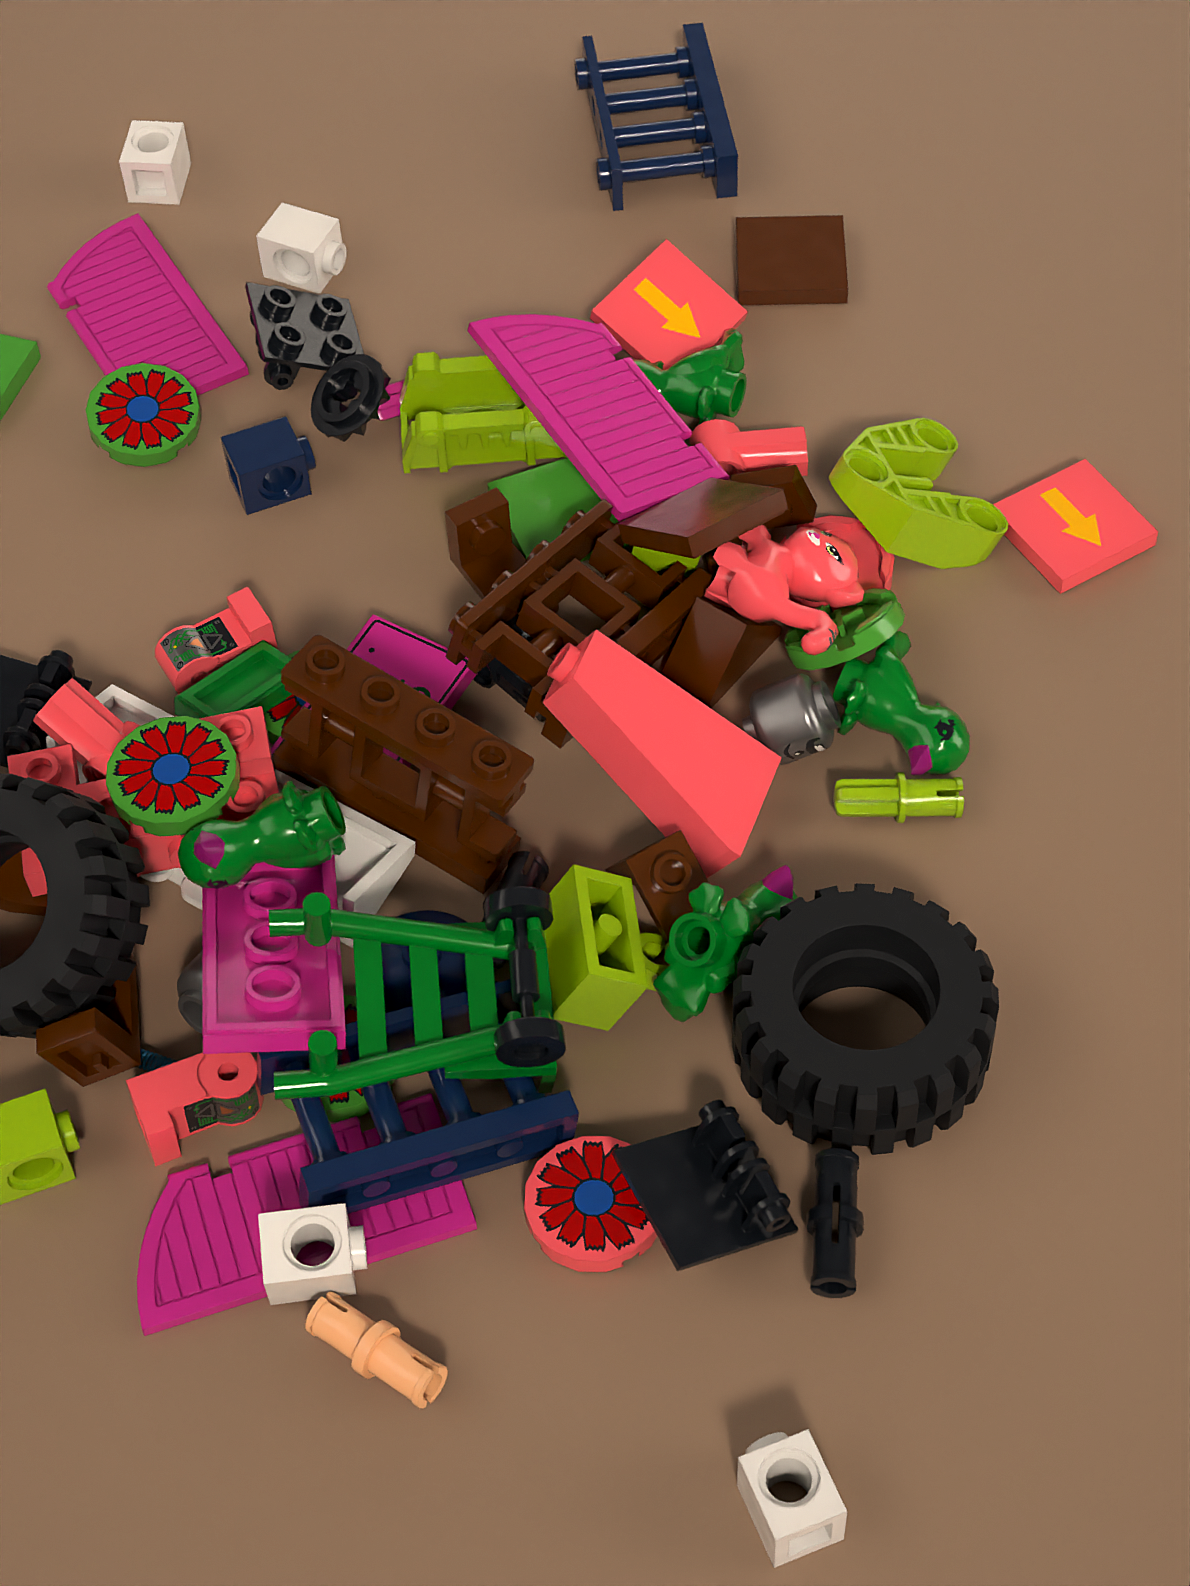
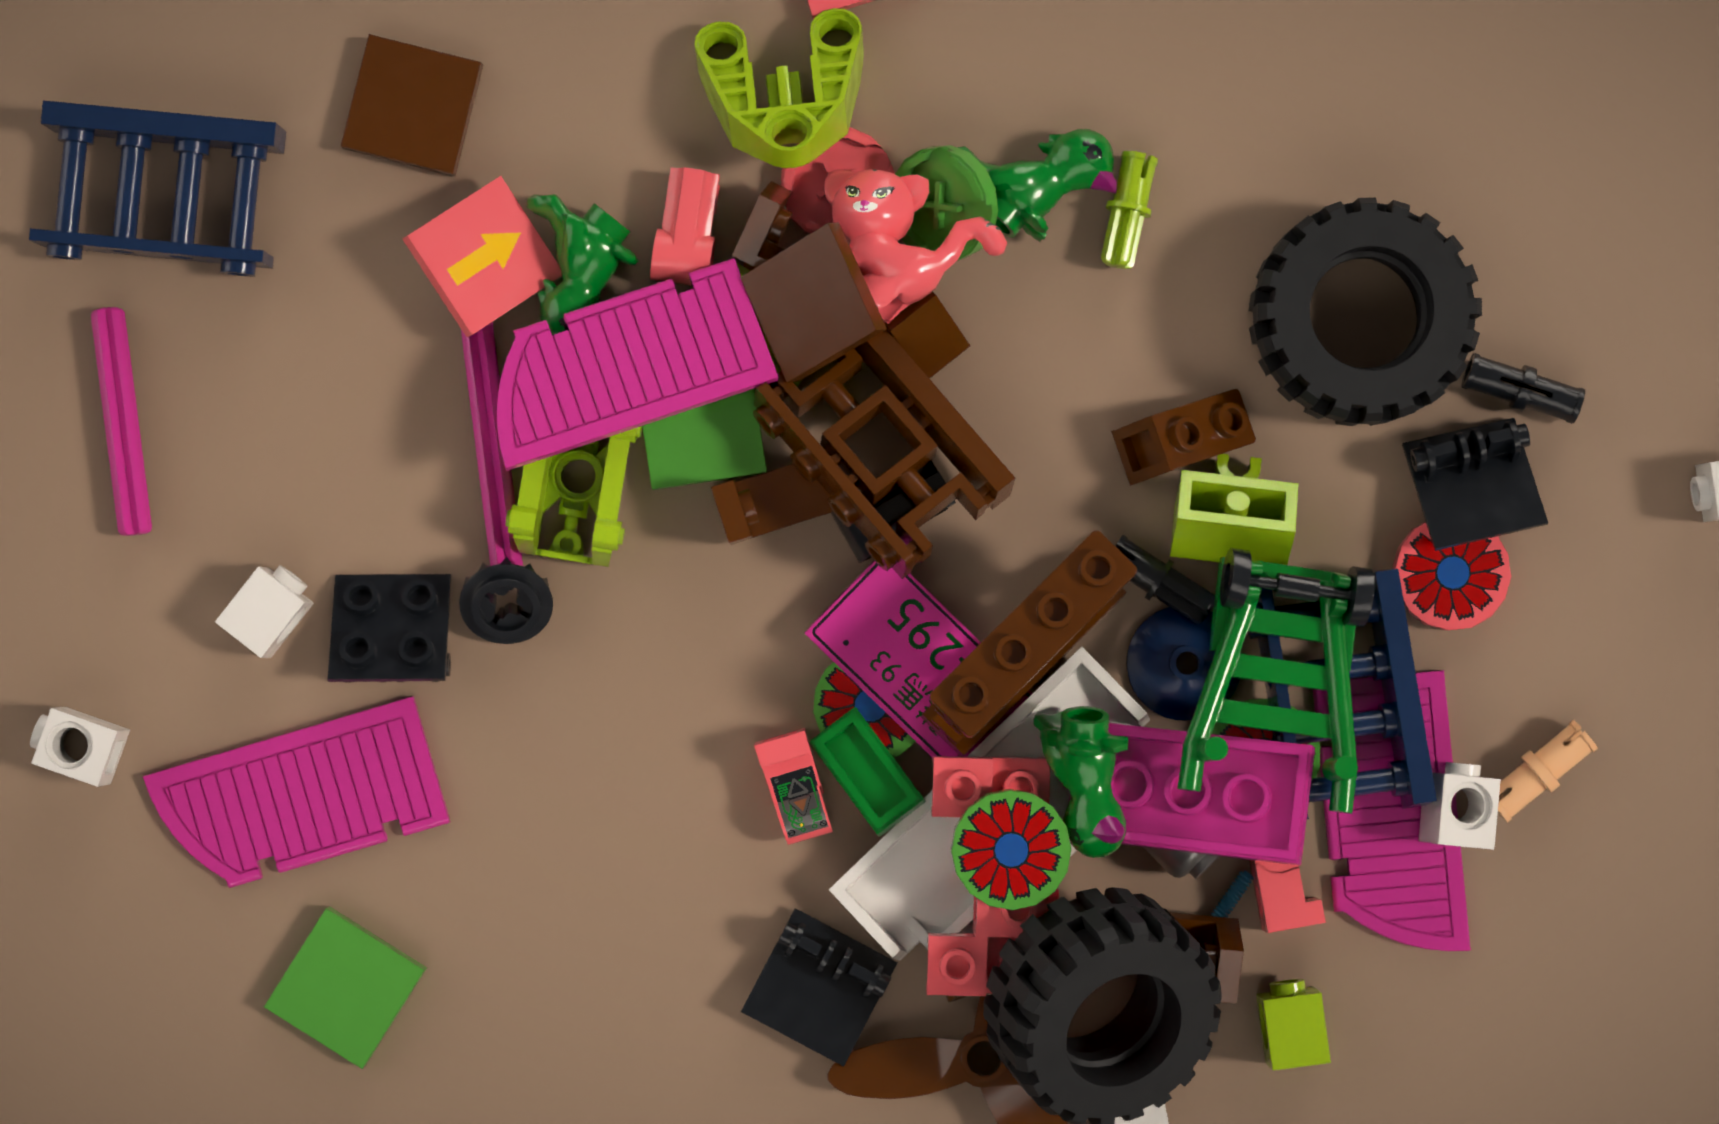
camera: 85 degrees left, 35 degrees up
(86, 724) = (924, 901): coral piece -> none
(143, 414) = (463, 812): tile -> none
(268, 464) = (573, 697): dark blue brick -> none
(446, 140) = (121, 421): none -> dark pink axle
(663, 747) = (1071, 402): coral slope -> none
(711, 938) = (1260, 412): green animal -> none
(793, 717) = (1031, 281): flat silver head -> none

